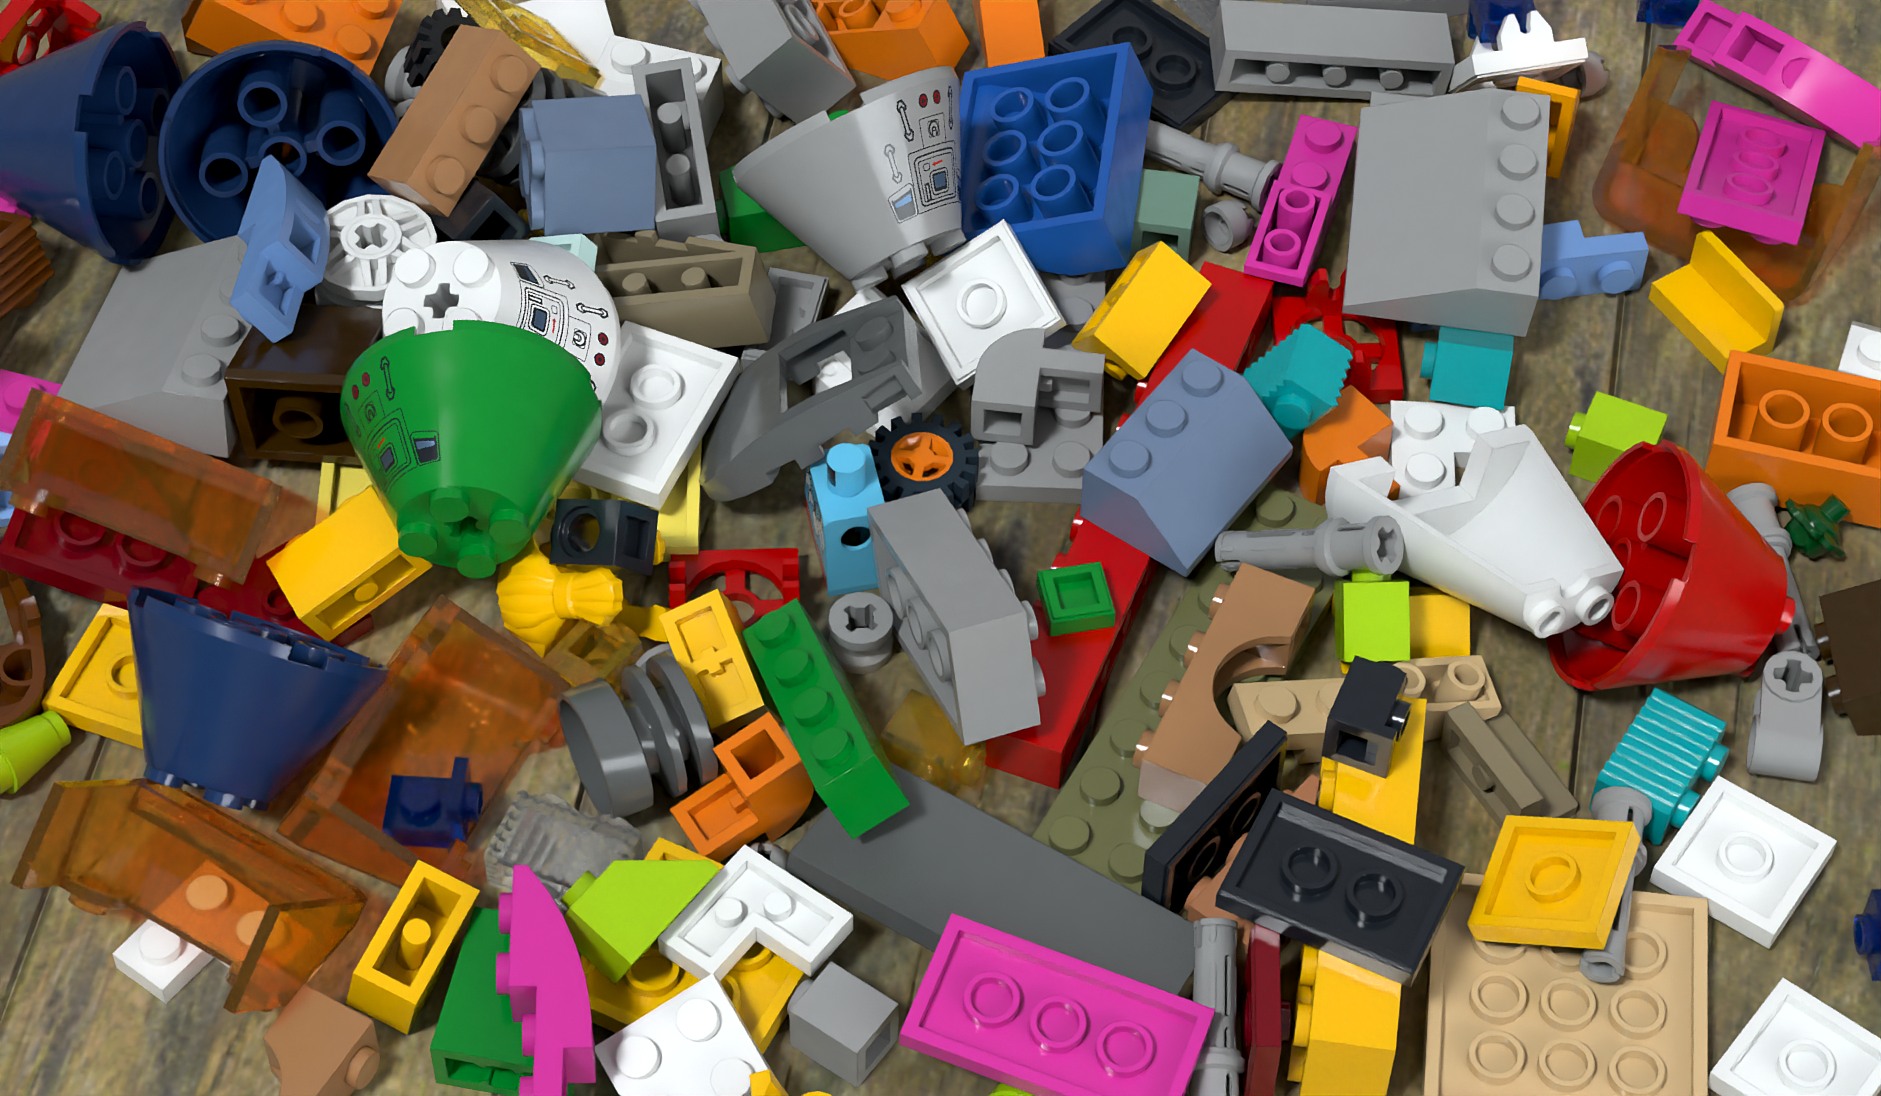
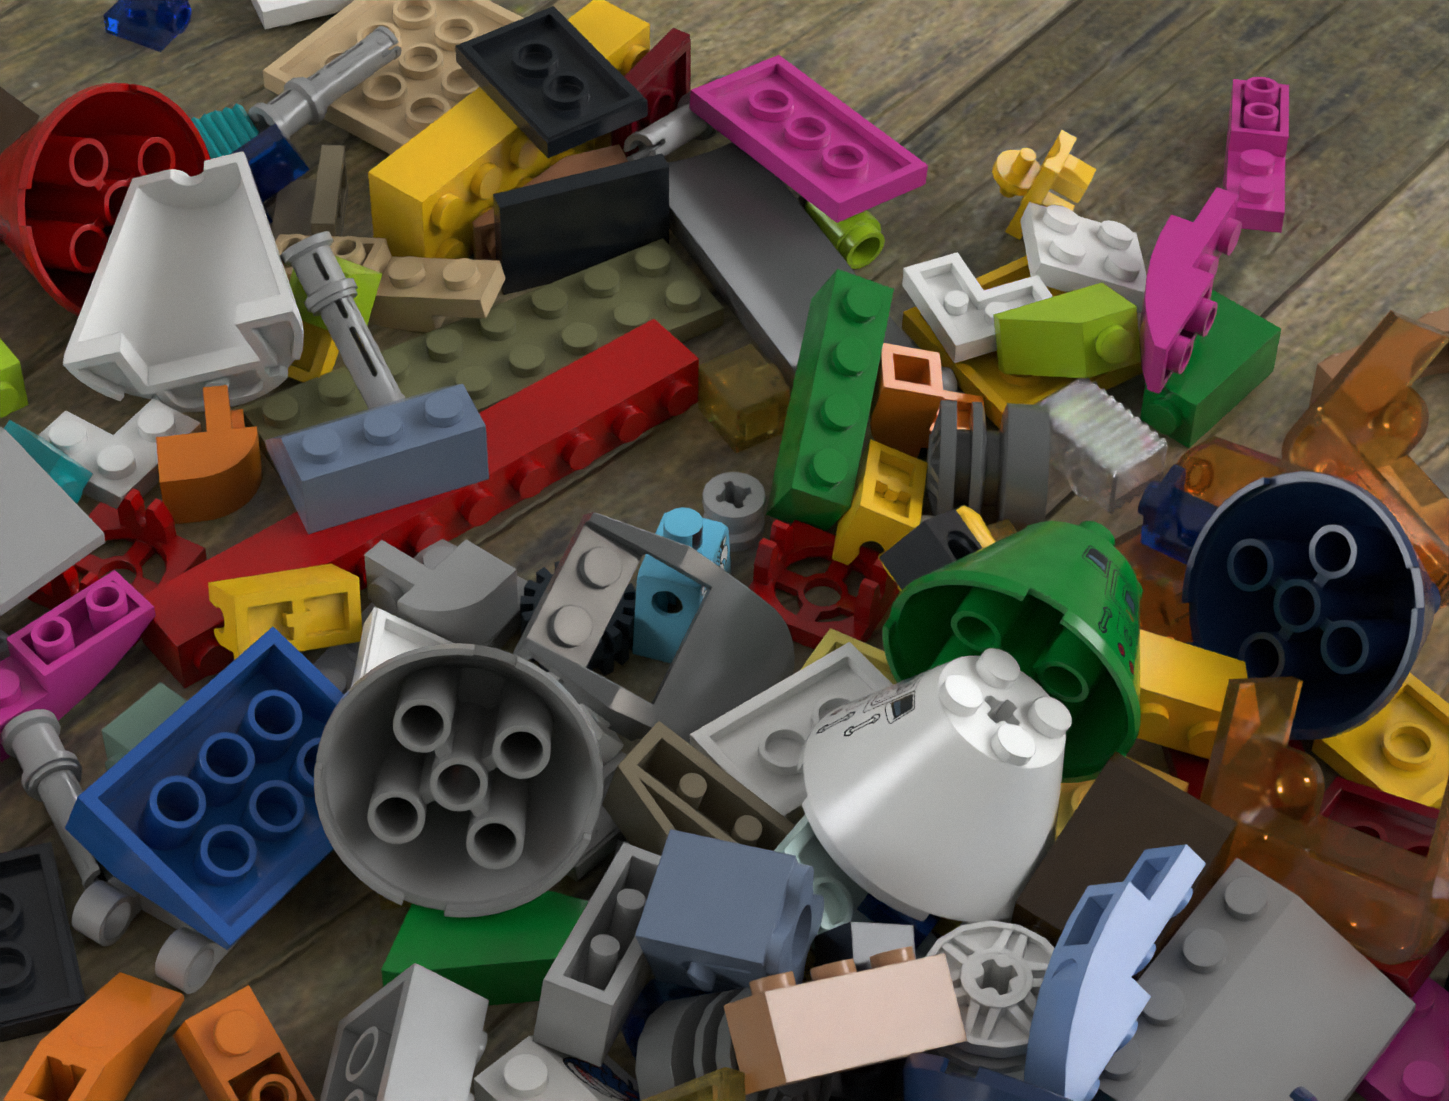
camera: 150 degrees left, 5 degrees down
(412, 947) = (1257, 400): yellow brick -> none
(842, 1023) = (942, 233): light grey brick -> none
(957, 616) = (675, 391): light grey brick -> none
(1075, 599) = (552, 405): green tile -> none
(1224, 236) = (92, 717): light grey hinge -> none
(1252, 633) = (435, 328): medium nougat arch -> none
(1300, 379) = (223, 482): teal brick -> none
(1367, 717) = (436, 147): black brick -> none
(1554, 881) = (375, 78): yellow plate -> none
(1577, 755) = (273, 162): none -> clear blue bracket
(1745, 860) = (208, 77): white plate -> none

